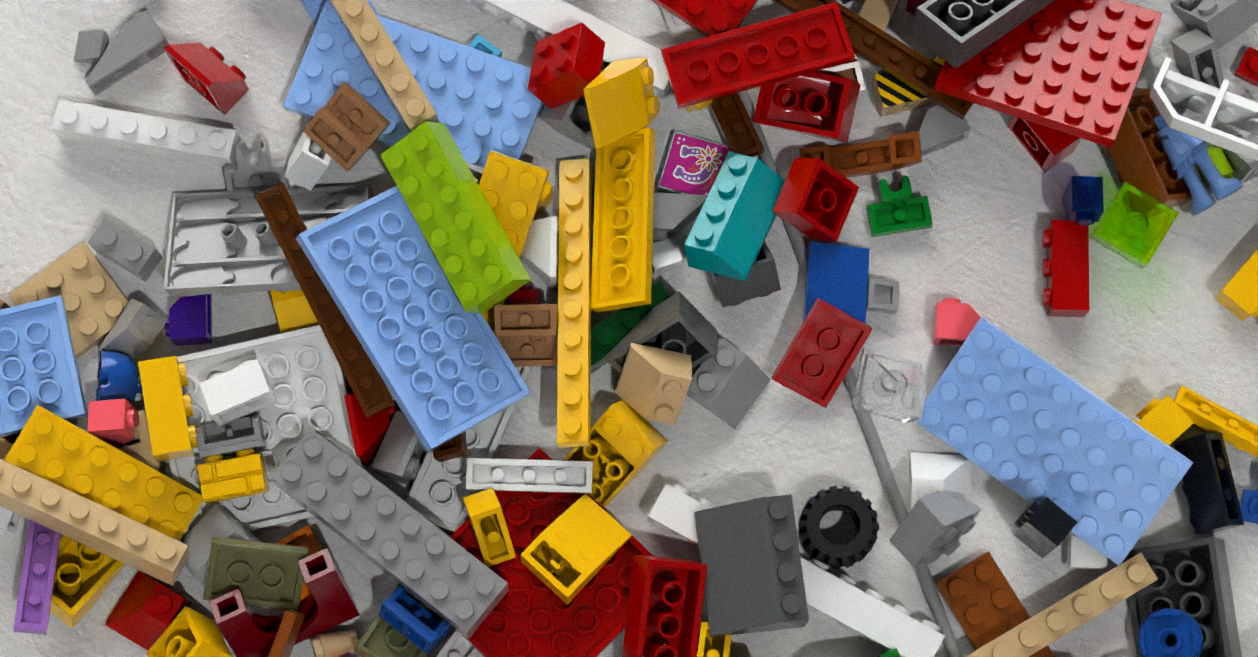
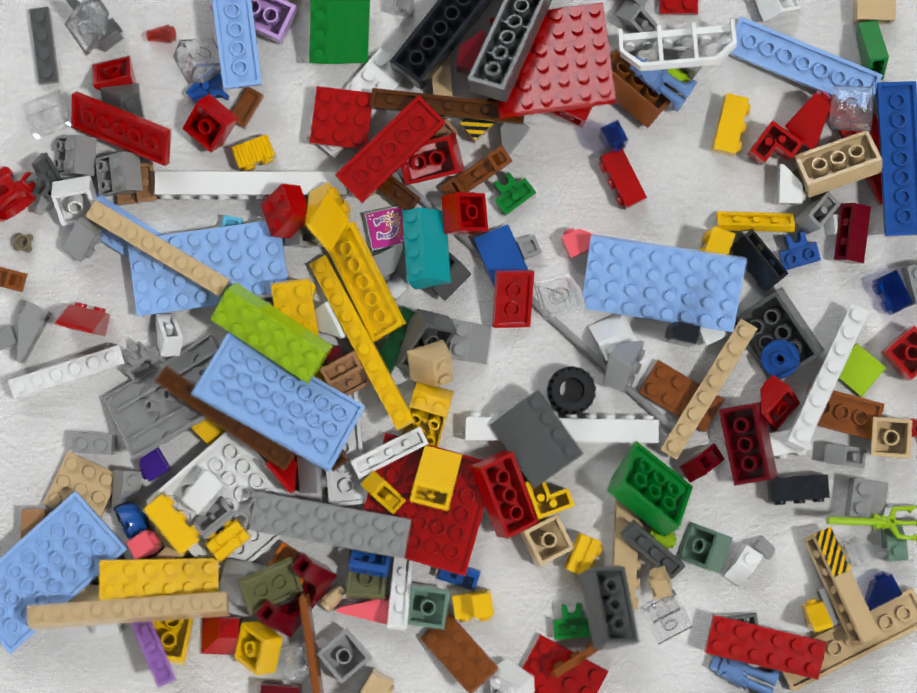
camera: 30 degrees left, 10 degrees up
(346, 126) = (180, 310): medium nougat slope -> none
(1134, 225) = (648, 135): clear neon green slope -> none

